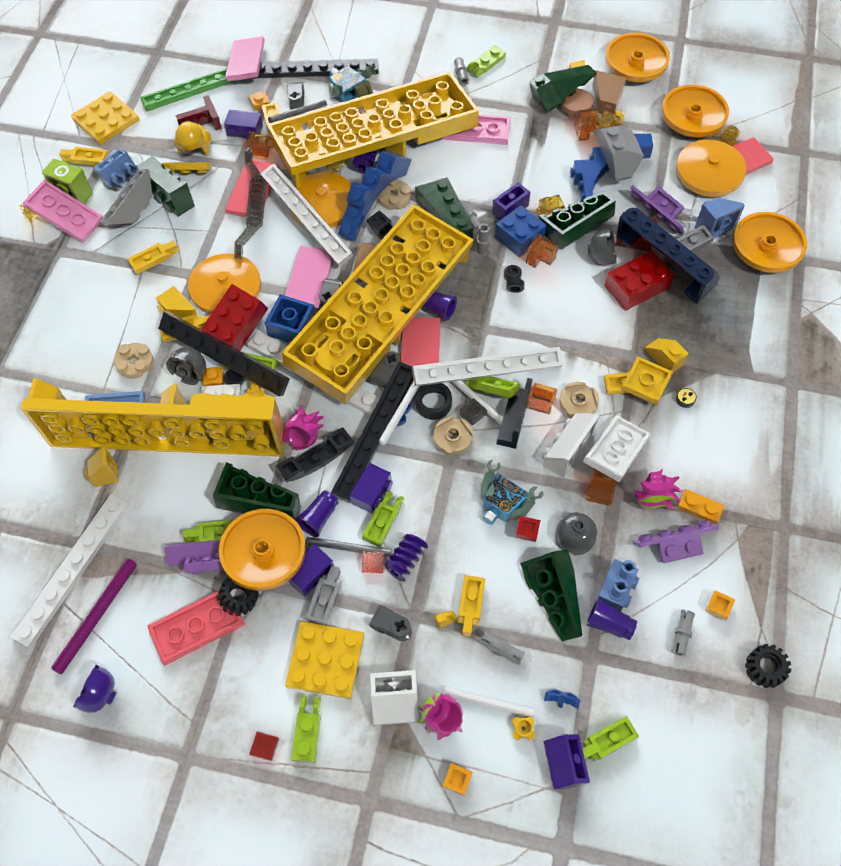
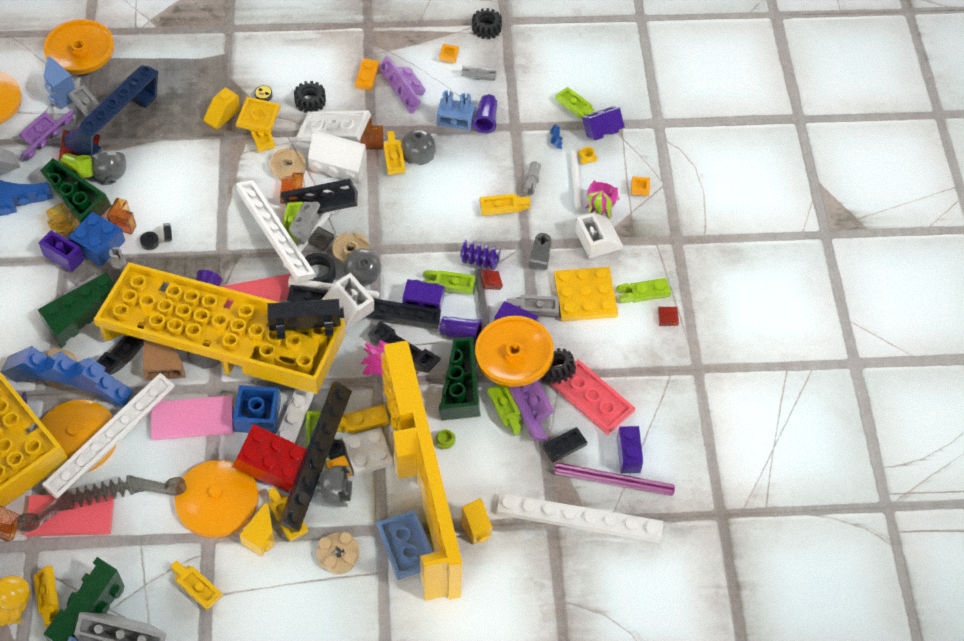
camera: 110 degrees left, 5 degrees down
(96, 691) = (678, 446): dark purple cylinder -> none
(114, 637) = (629, 449): none -> dark purple brick
(151, 577) = (564, 444): none -> black plate
(204, 470) = (445, 439): none -> lime plate
(329, 287) = (212, 386): piece -> none
(355, 357) = (304, 315): none -> black brick
(373, 408) = (353, 298): none -> white slope
(422, 437) = (364, 274): none -> dark grey cylinder
(445, 619) = (523, 219): yellow tile -> none
(489, 393) = (305, 221): none -> light grey bracket
(504, 498) = (403, 196): torso -> none
(528, 528) = (427, 176): red tile -> none
(555, 586) = (468, 154): dark green wedge -> none
(567, 503) = (393, 155): none -> yellow hinge
(605, 220) = (79, 164): none -> lime piece
(638, 280) = (142, 137): red brick -> none
(658, 491) = (366, 95): dark pink hair -> none
(675, 429) = (309, 89): none -> black tyre

